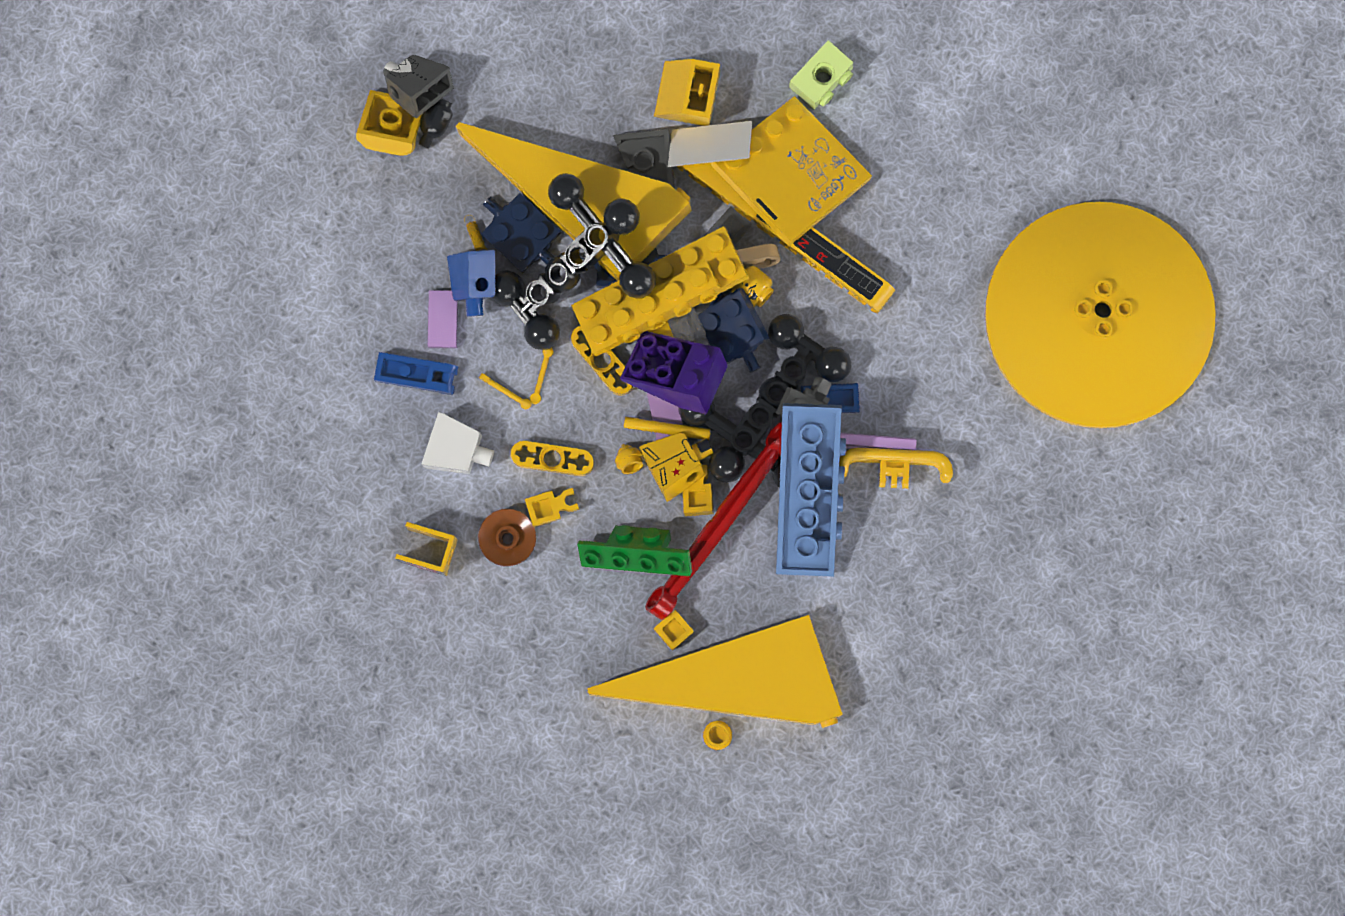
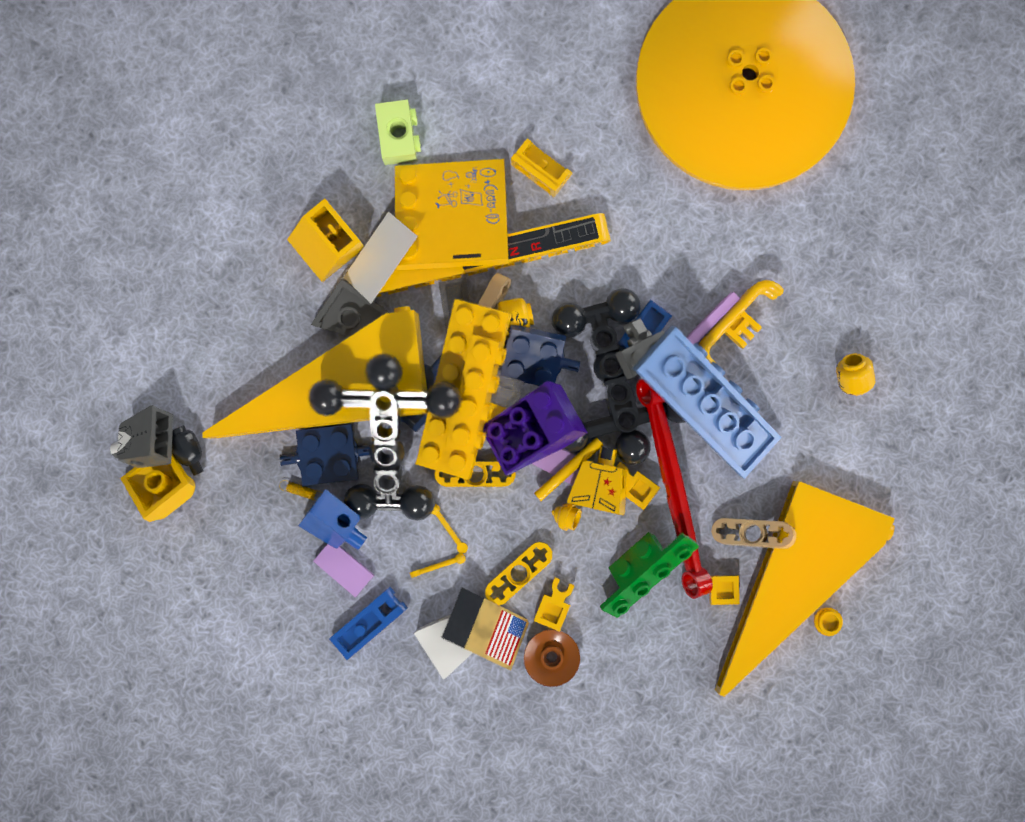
camera: 55 degrees left, 5 degrees up
(451, 539) = (521, 740): yellow piece -> none
(487, 466) = (485, 629): none -> sticker
(738, 625) = (775, 527): none -> tan beam
(890, 210) = (540, 168): none -> yellow hinge
(933, 592) = (855, 374): none -> yellow head

